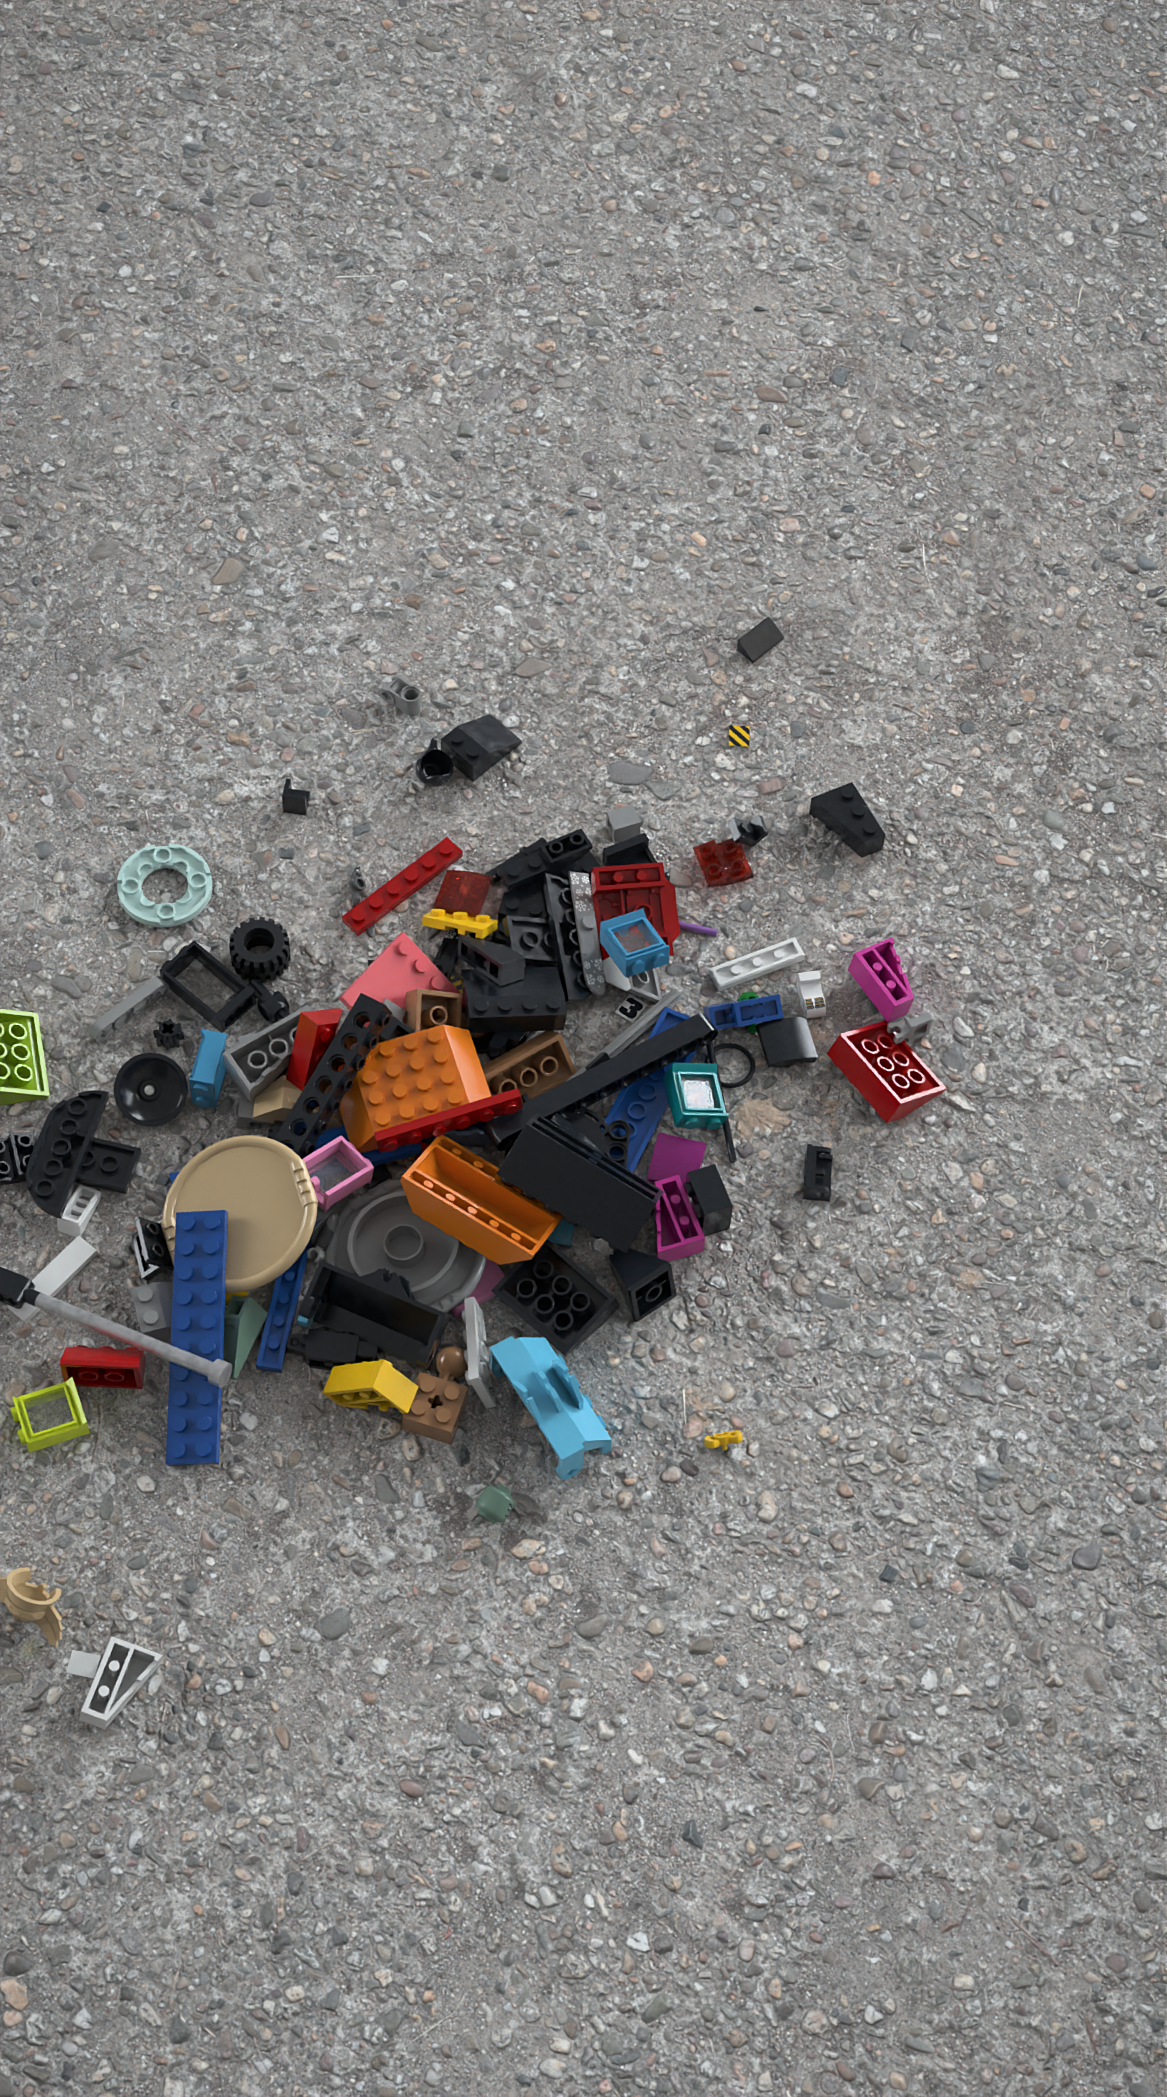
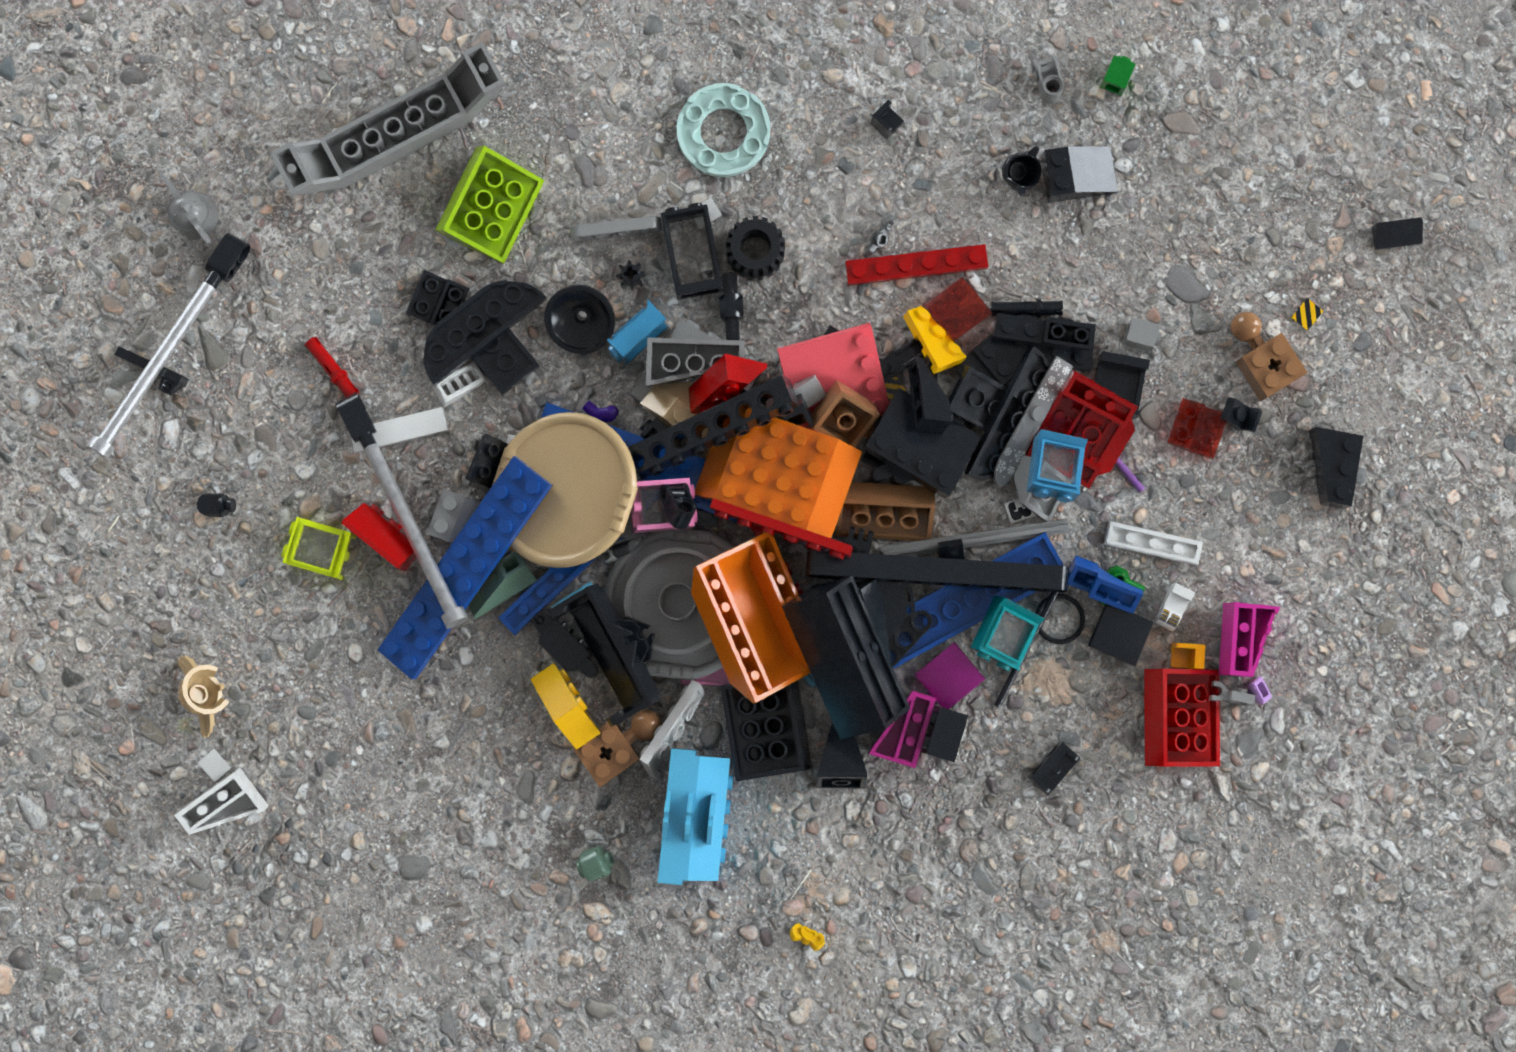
camera: 40 degrees right, 25 degrees up
(347, 1156) = (677, 504): none -> black piece
(455, 661) = (1118, 74): none -> green brick
(738, 783) = (1276, 351): none -> medium nougat brick
(851, 1019) = (1187, 656): none -> light orange panel
(935, 1014) = (1260, 690): none -> lavender slope

